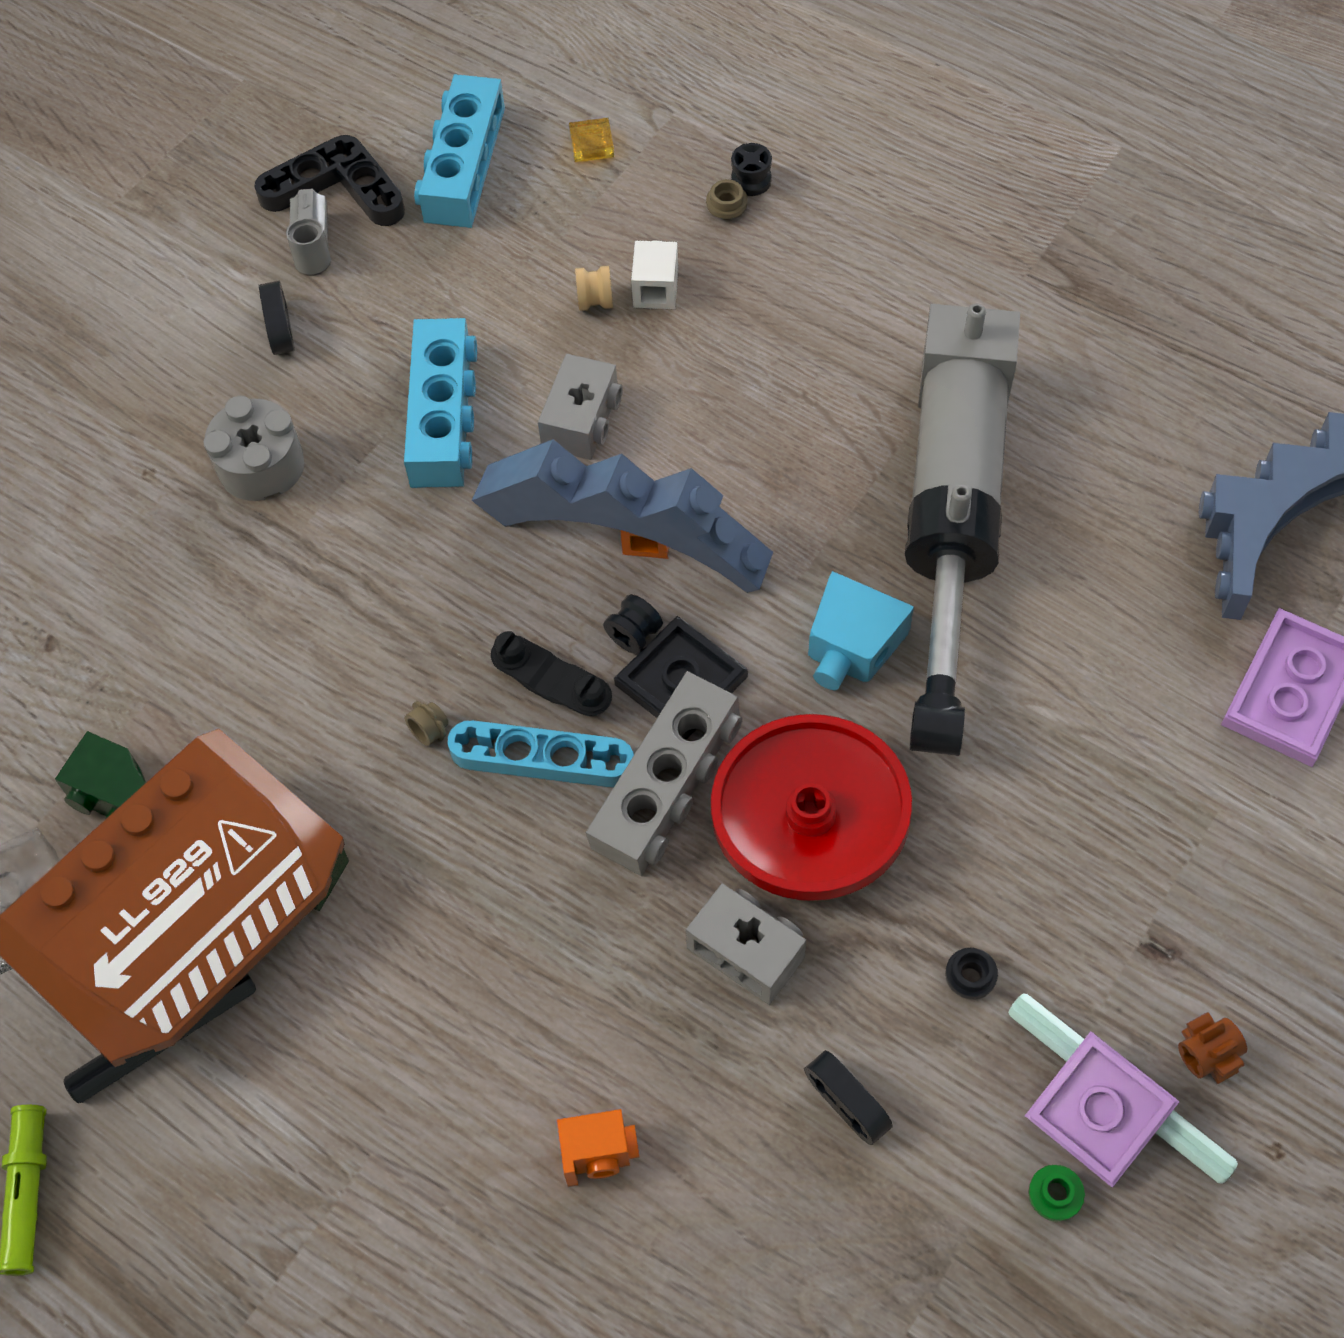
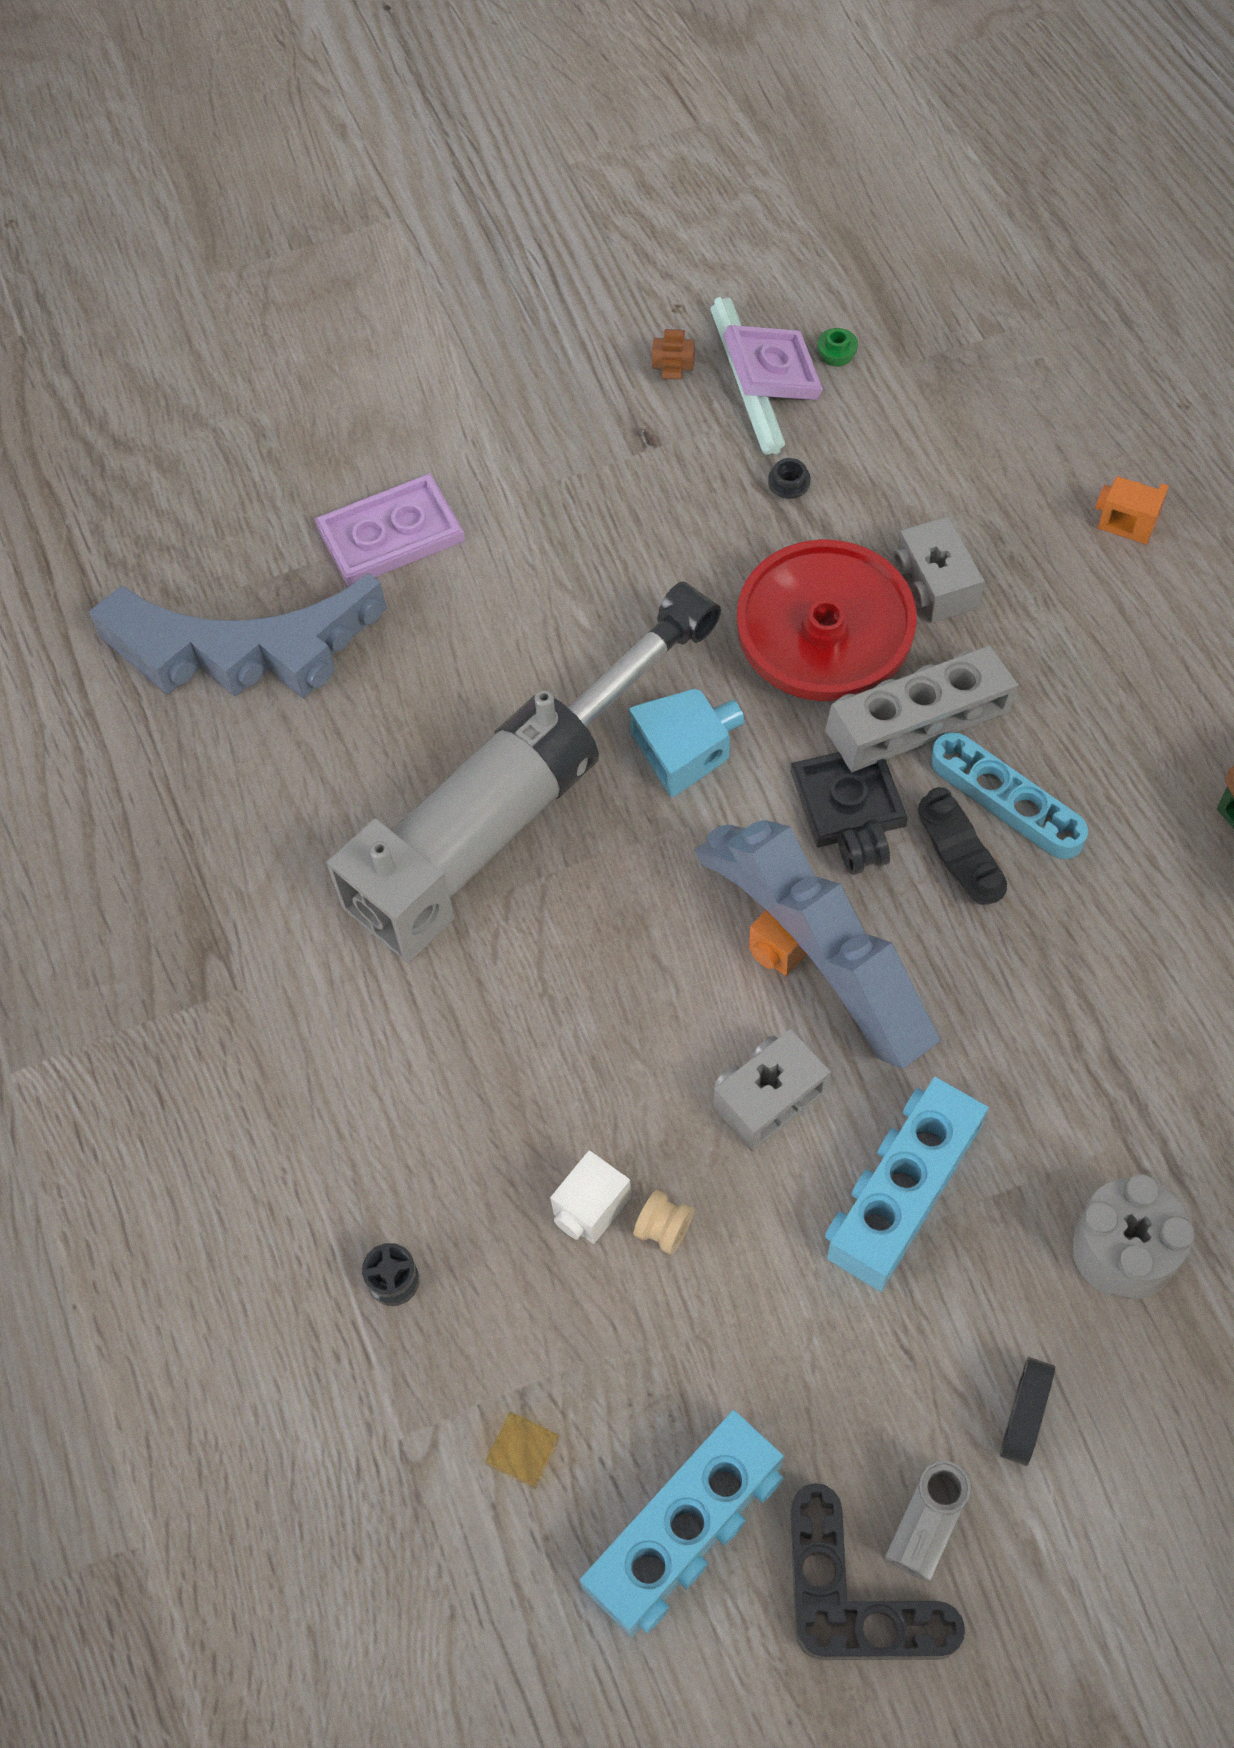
camera: 145 degrees left, 0 degrees up
(426, 722) = (1094, 869): dark tan plate -> none
(726, 199) = (445, 1241): dark tan plate -> none
(848, 1097) = (934, 450): black beam -> none

